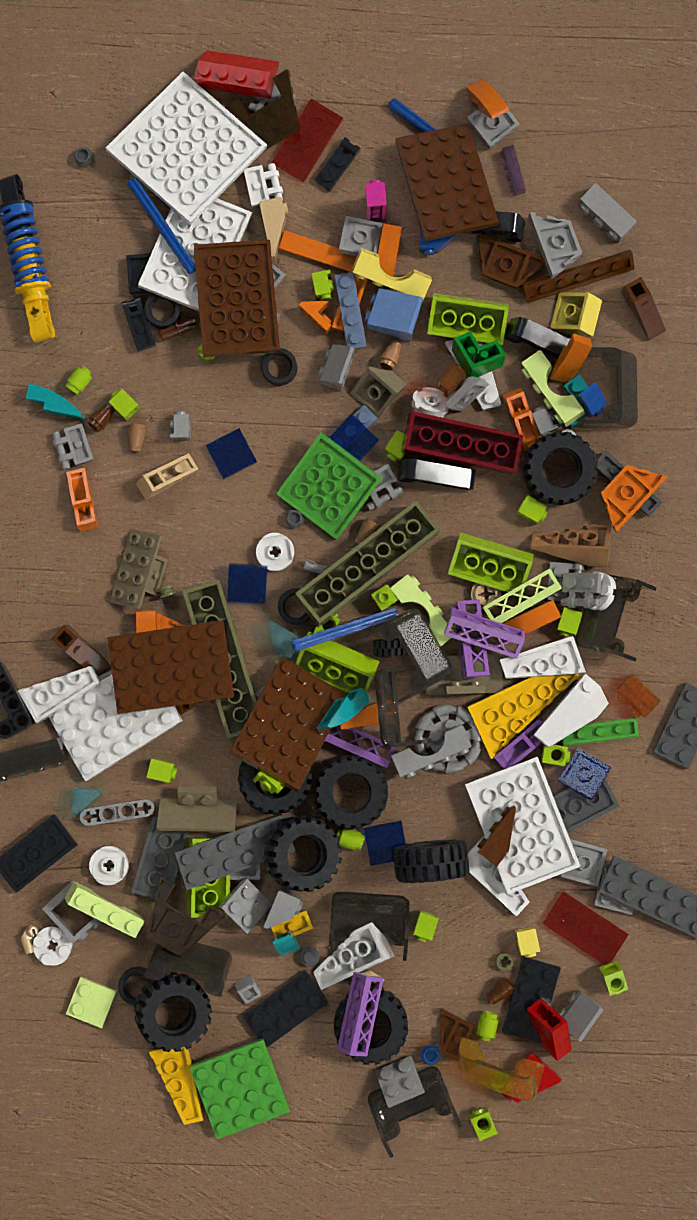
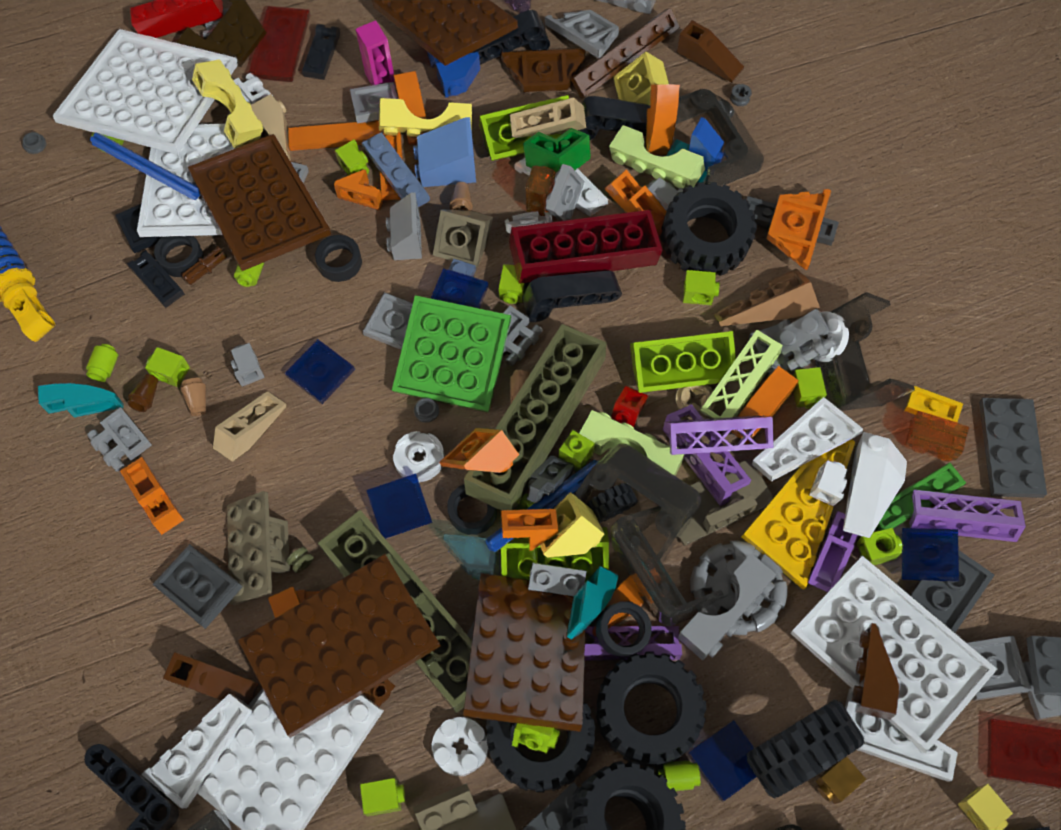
camera: 20 degrees left, 20 degrees down
(92, 581) = (197, 586): none -> dark grey tile
(211, 761) = (469, 759): none -> white plate
(242, 171) = (216, 82): none -> light yellow arch
(298, 435) = (389, 321): none -> light grey tile
(312, 583) = (482, 451): none -> orange slope
(326, 645) = (535, 524): none -> orange slope
(328, 684) = (556, 579): none -> light grey hinge
(350, 657) = (576, 529): none -> light yellow slope
(355, 611) = (548, 477): none -> dark grey hinge
(366, 747) = (642, 620): none -> black tyre
(436, 580) = (628, 406): none -> red bracket
(447, 888) = (840, 781): none -> pearl gold brick
(482, 324) = (549, 119): none -> tan slope
(543, 698) = (829, 483): none -> white brick
(622, 765) = (968, 521): none -> medium lavender fence
(648, 674) = (933, 404): none -> yellow plate
(656, 354) = (738, 100): none -> dark grey bush

